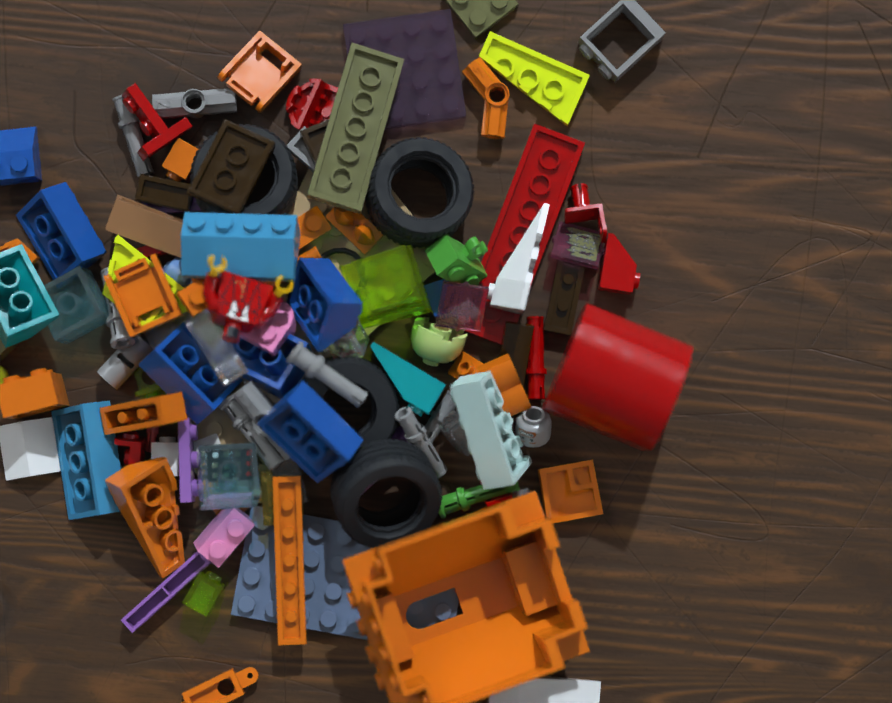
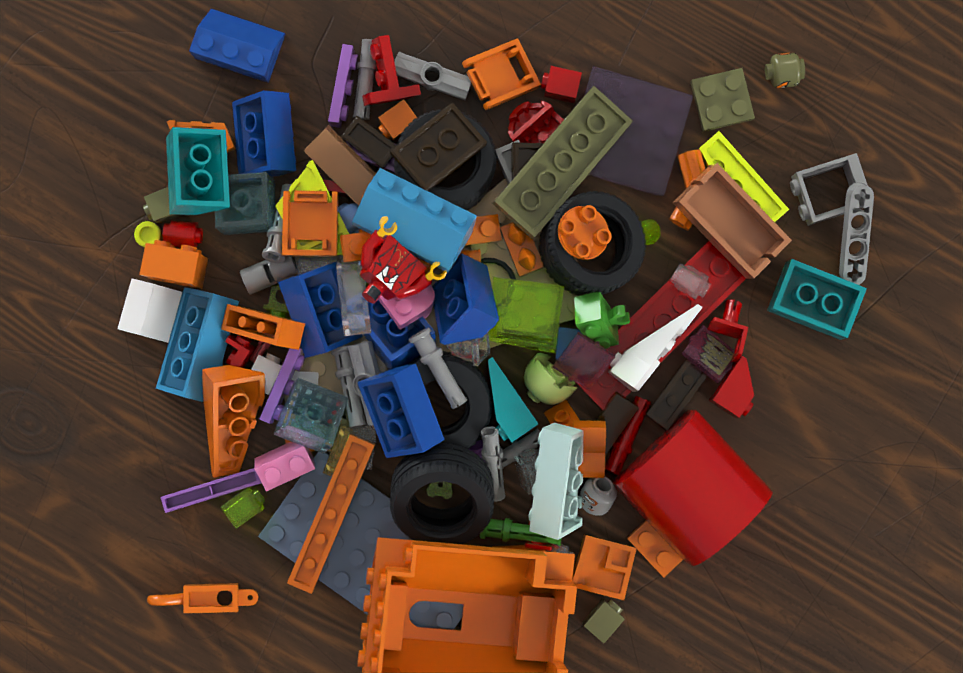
camera: 25 degrees right, 0 degrees up
(26, 360) = (182, 233): none -> red brick
(114, 151) = (343, 86): none -> medium lavender plate
(321, 55) = (561, 84): none -> red brick
(387, 490) = (444, 491): none -> clear neon green plate
(405, 185) = (583, 232): none -> orange dish
(469, 154) = (651, 231): none -> clear neon green plate
(527, 185) = (690, 281): none -> clear brick
(540, 110) = (732, 221): none -> nougat piece
(593, 541) = (604, 619): none -> olive brick
(610, 452) = (654, 548): none -> orange plate
(654, 148) = (816, 299): none -> teal brick
(667, 67) = (856, 234): none -> light grey beam

